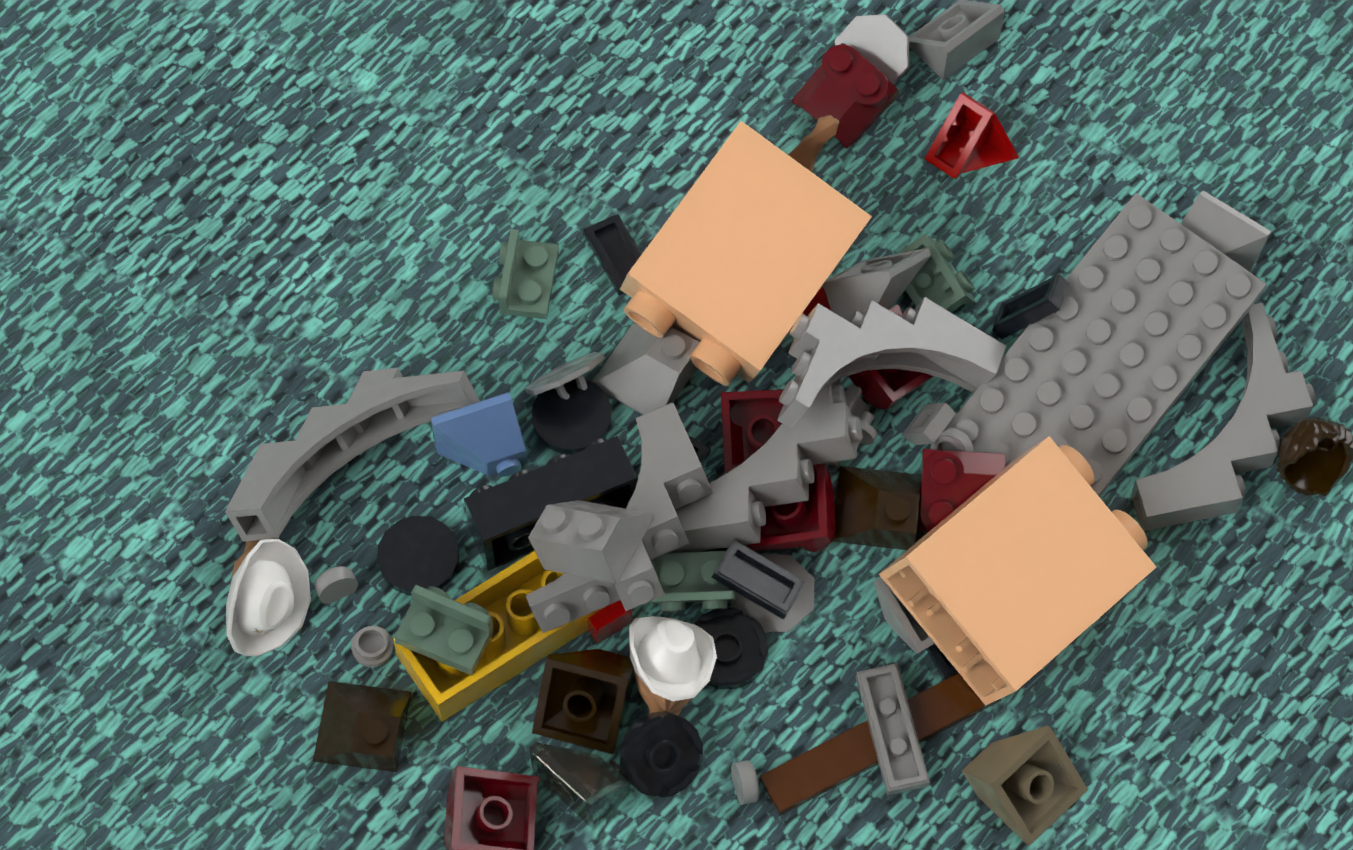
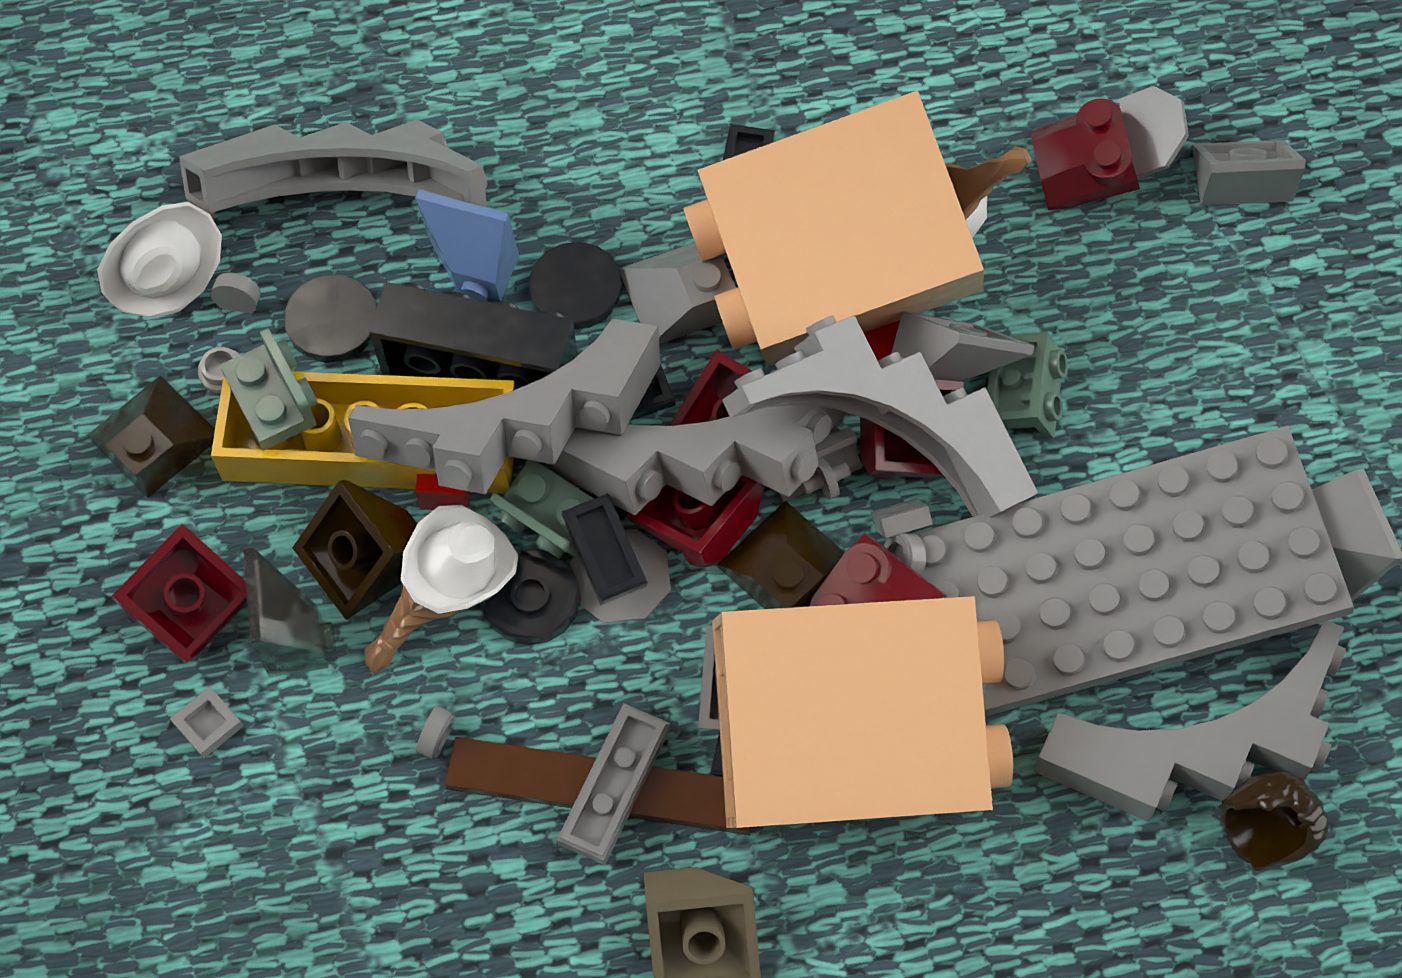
camera: 40 degrees right, 0 degrees up
(526, 277) = (640, 132): sand green bracket -> none
(559, 376) = (591, 239): light grey piece -> none
(588, 539) = (450, 387): light grey slope -> none
(661, 754) = (376, 648): black tile -> none
(970, 139) = (1174, 275): red slope -> none
(1030, 306) = (1094, 470): black tile -> none

